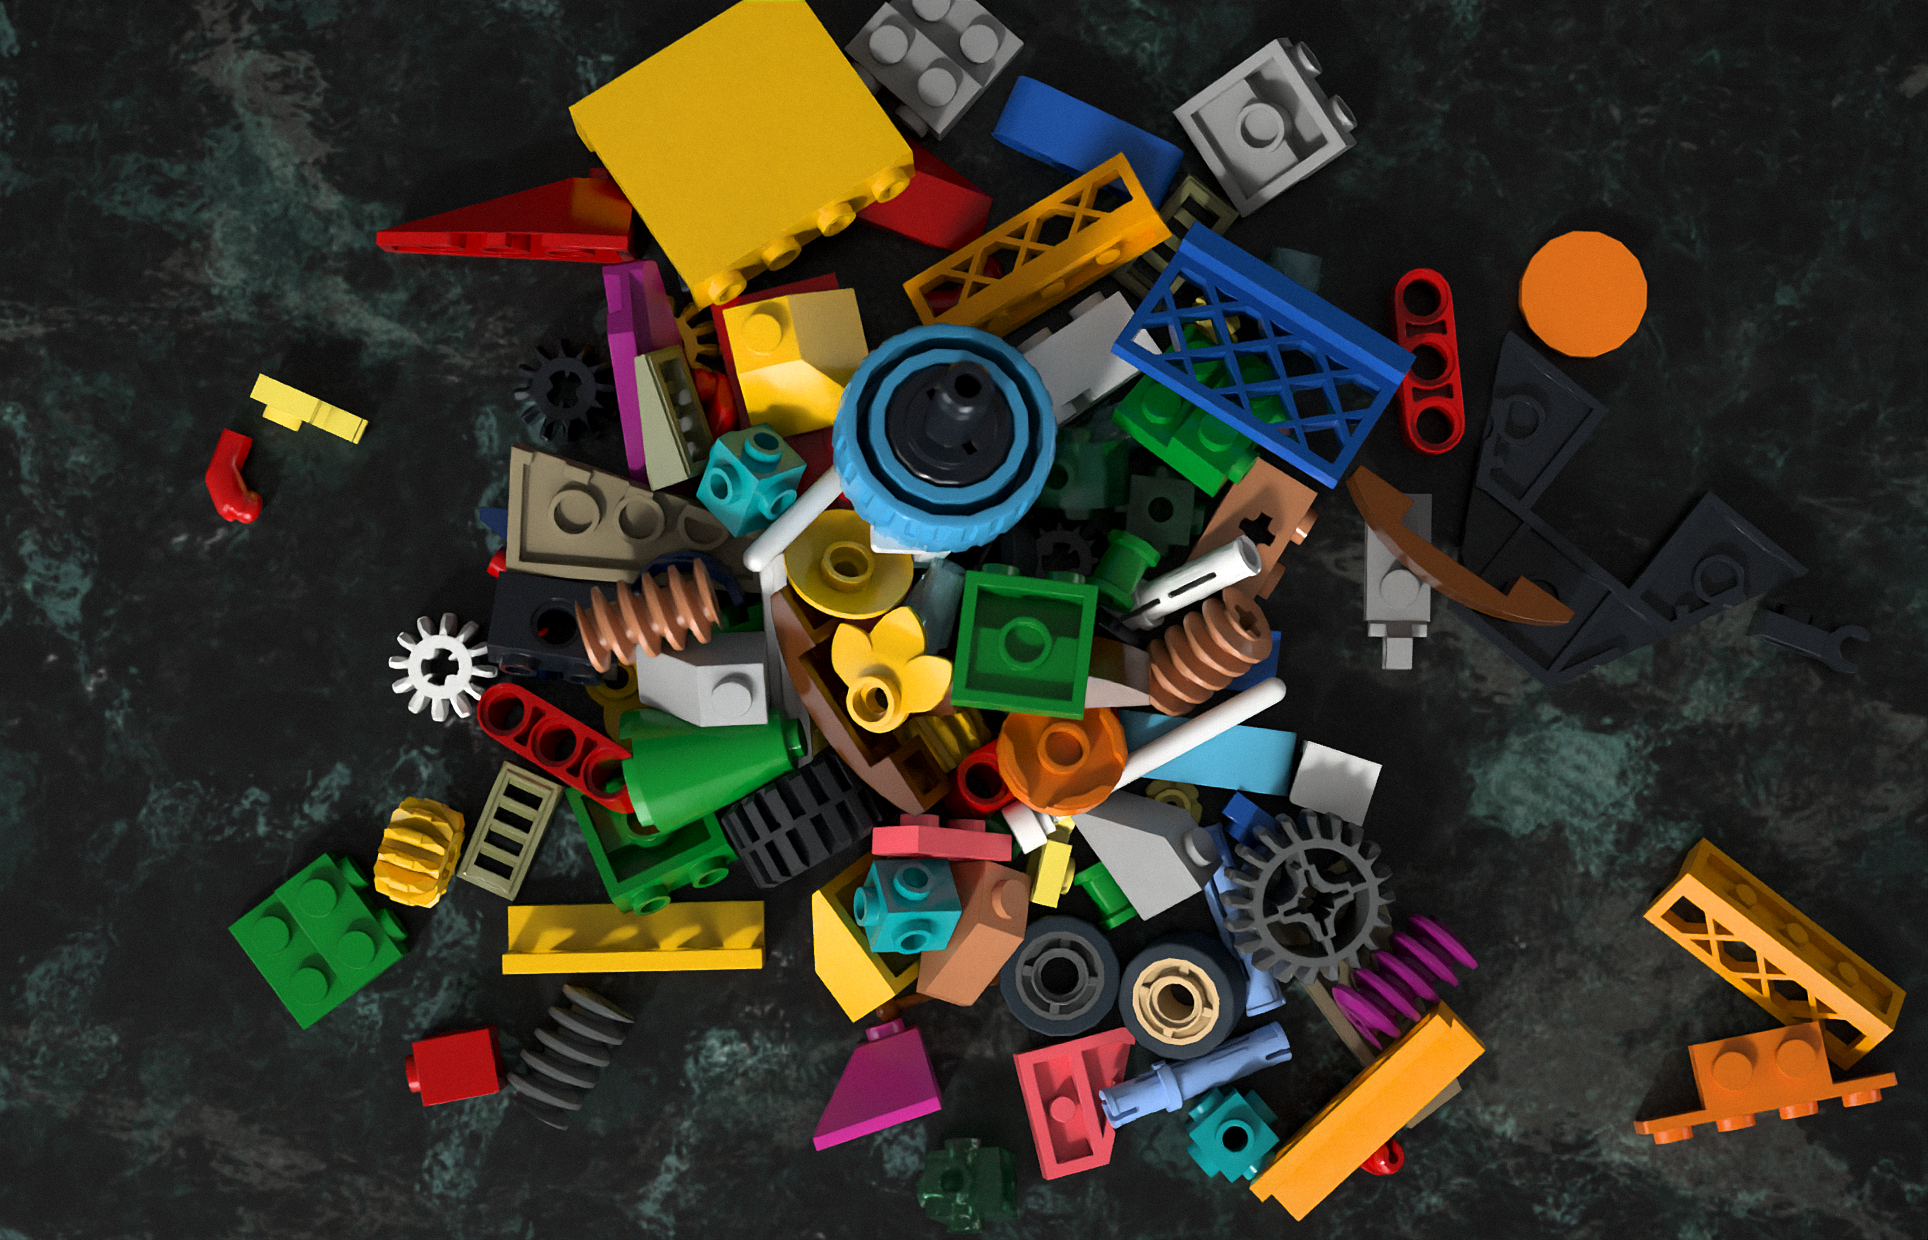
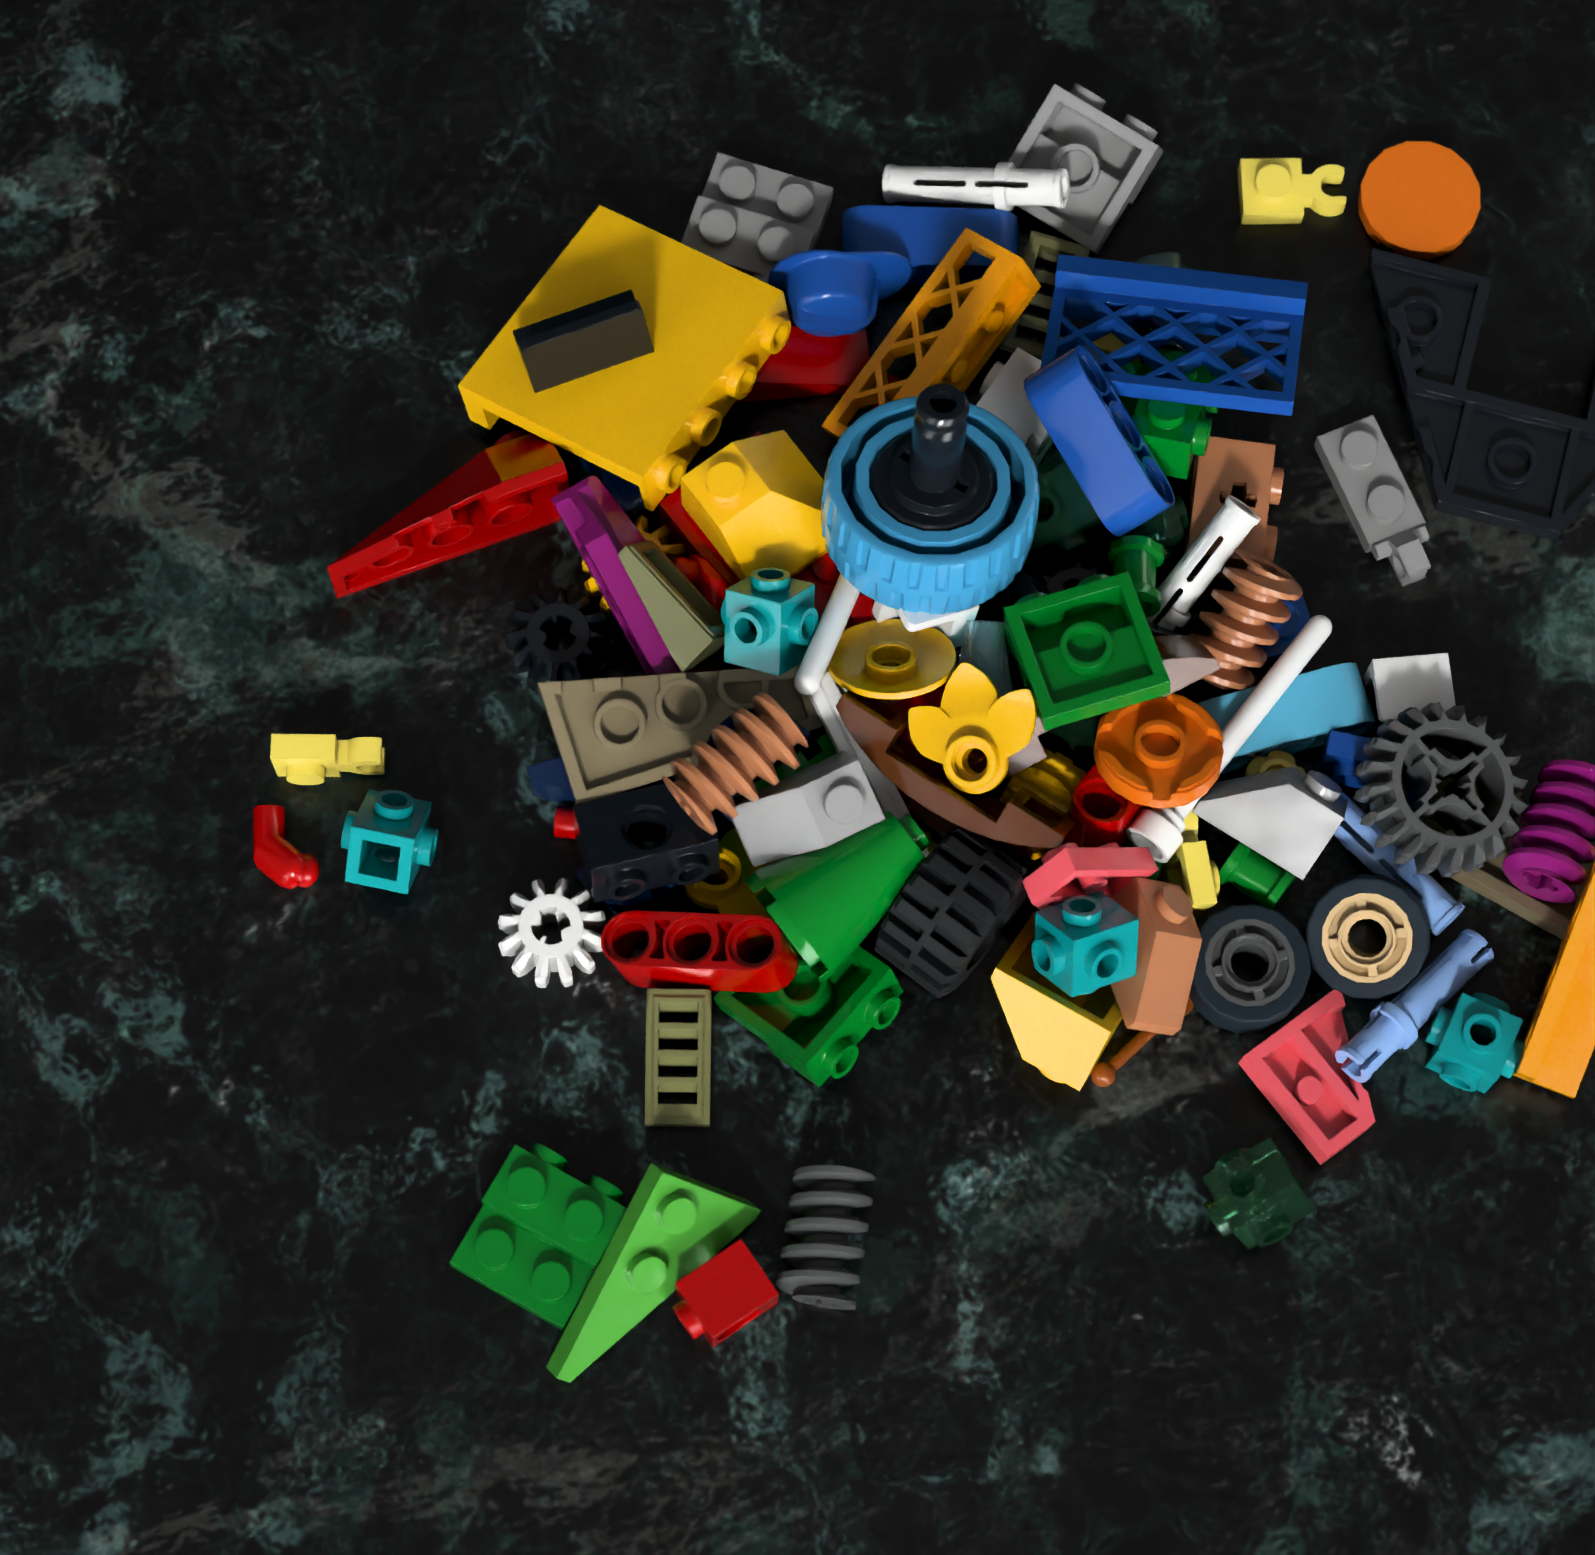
camera: 25 degrees left, 15 degrees down
(331, 506) = (388, 840): none -> teal brick
(416, 995) = (662, 1237): none -> bright green wing
(419, 852) = (604, 1105): yellow gear -> none
(606, 940) = (819, 1118): yellow fence -> none
(699, 119) = (583, 341): none -> black panel
(881, 1085) = (1132, 1132): dark pink slope -> none
(968, 164) = (838, 290): none -> blue piece
(1137, 437) = (1099, 441): none -> blue beam
(1157, 106) = (1044, 187): none -> white pin
(1384, 509) = (1337, 433): reddish brown slope -> none
(1438, 334) = (1322, 333): red beam -> none
(1451, 226) = (1278, 191): none -> light yellow plate

